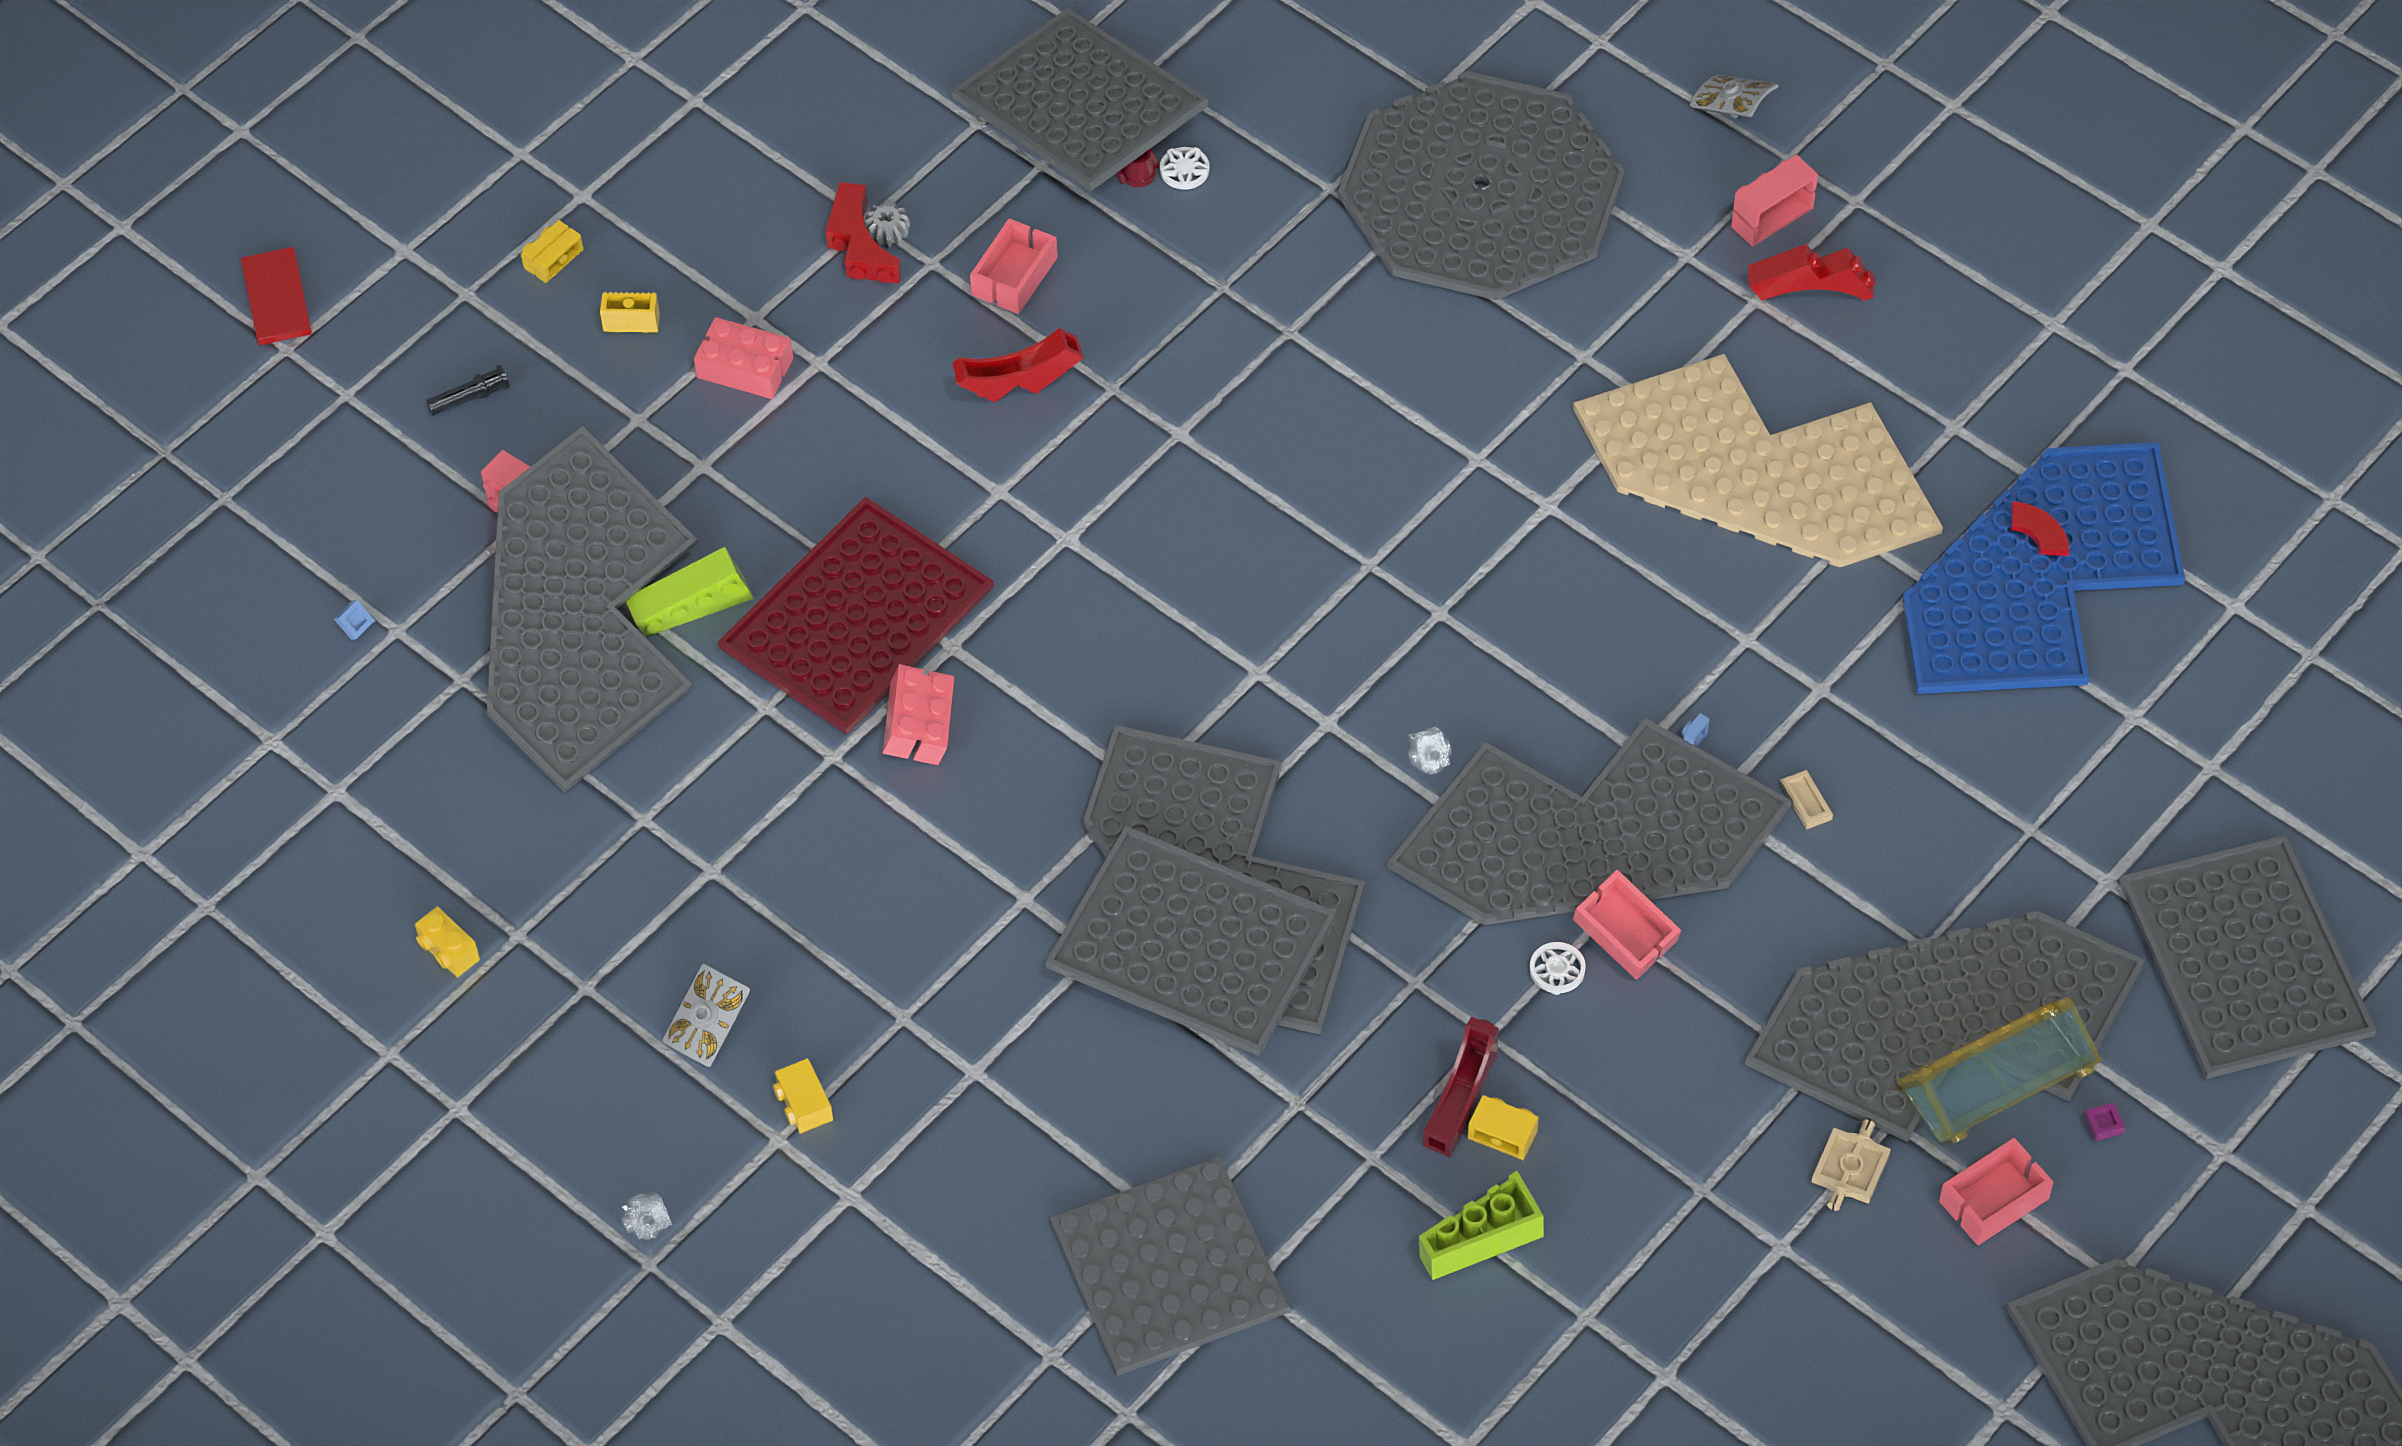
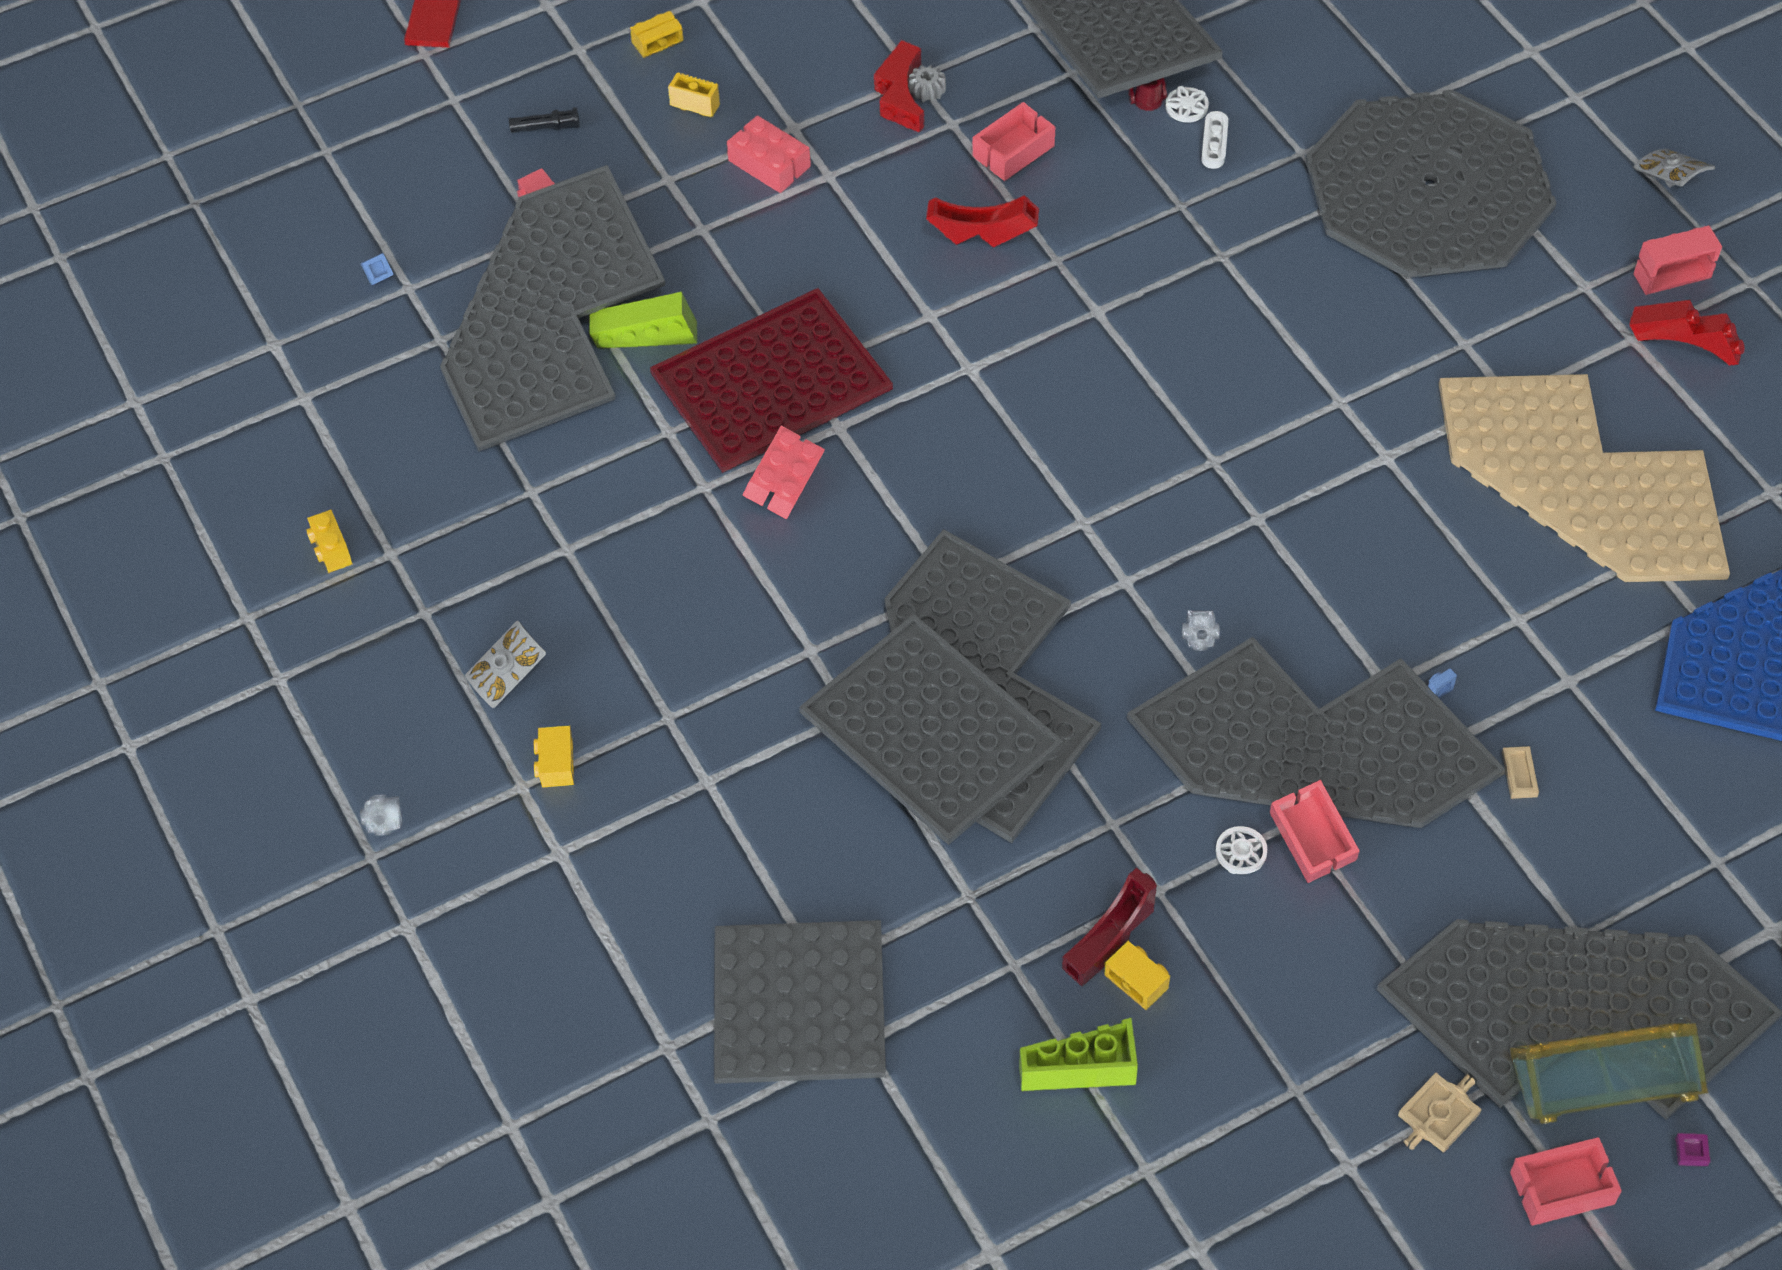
camera: 20 degrees right, 0 degrees up
(1237, 215) = (1214, 139): none -> white plate

